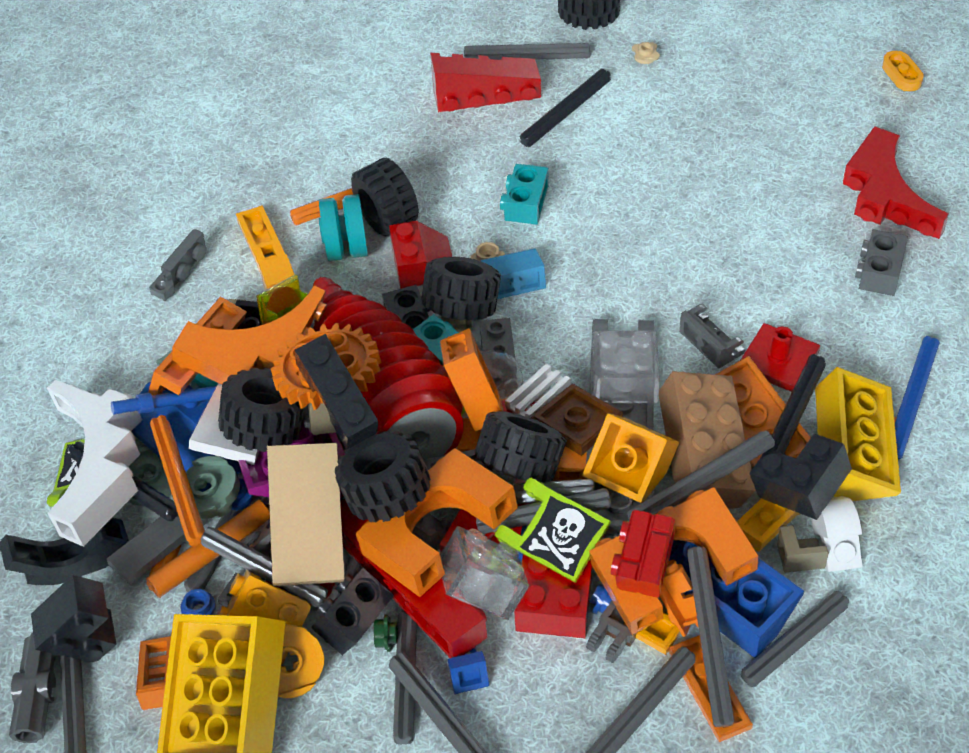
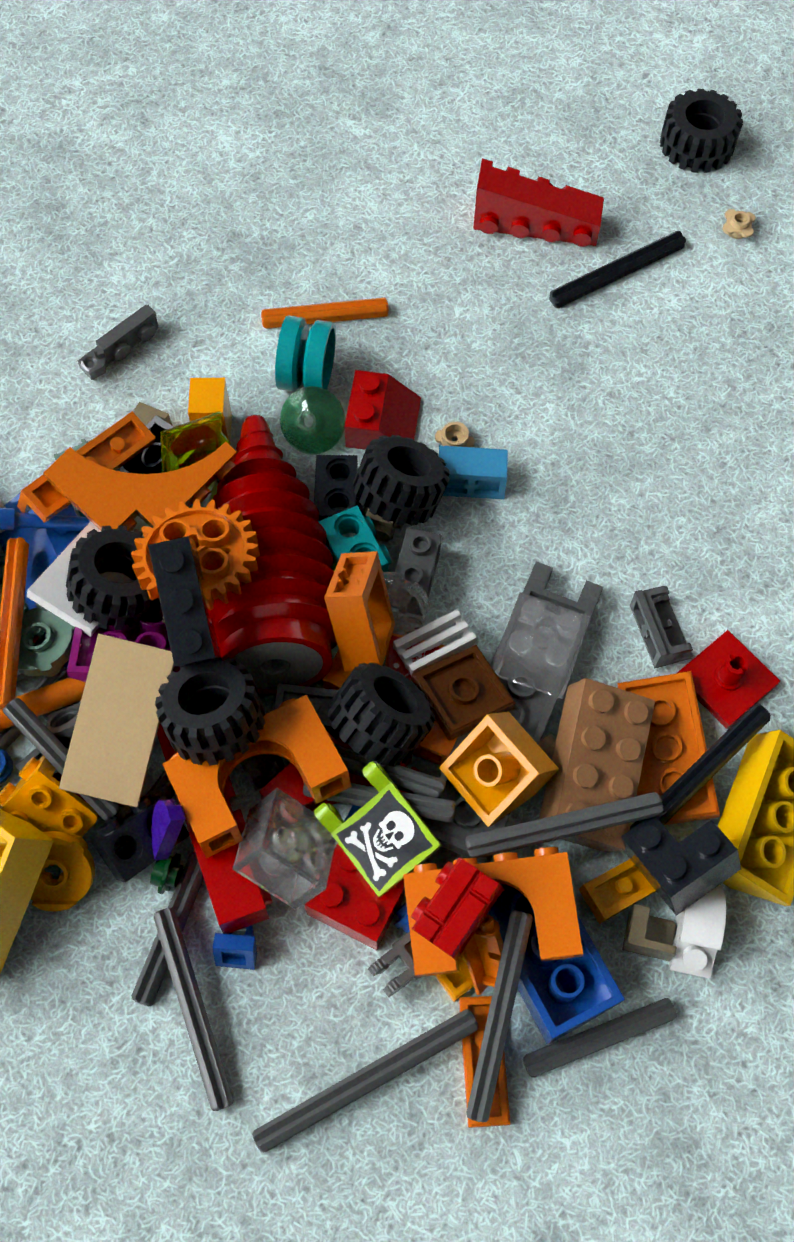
camera: 15 degrees right, 15 degrees up
(259, 234) = (219, 335): light orange plate -> none
(375, 583) = (166, 826): none -> dark purple tile
(381, 269) = (327, 420): none -> clear green dish
(385, 195) = (365, 330): black tyre -> none
(525, 194) = (529, 374): teal brick -> none
(531, 51) = (603, 180): dark grey axle -> none

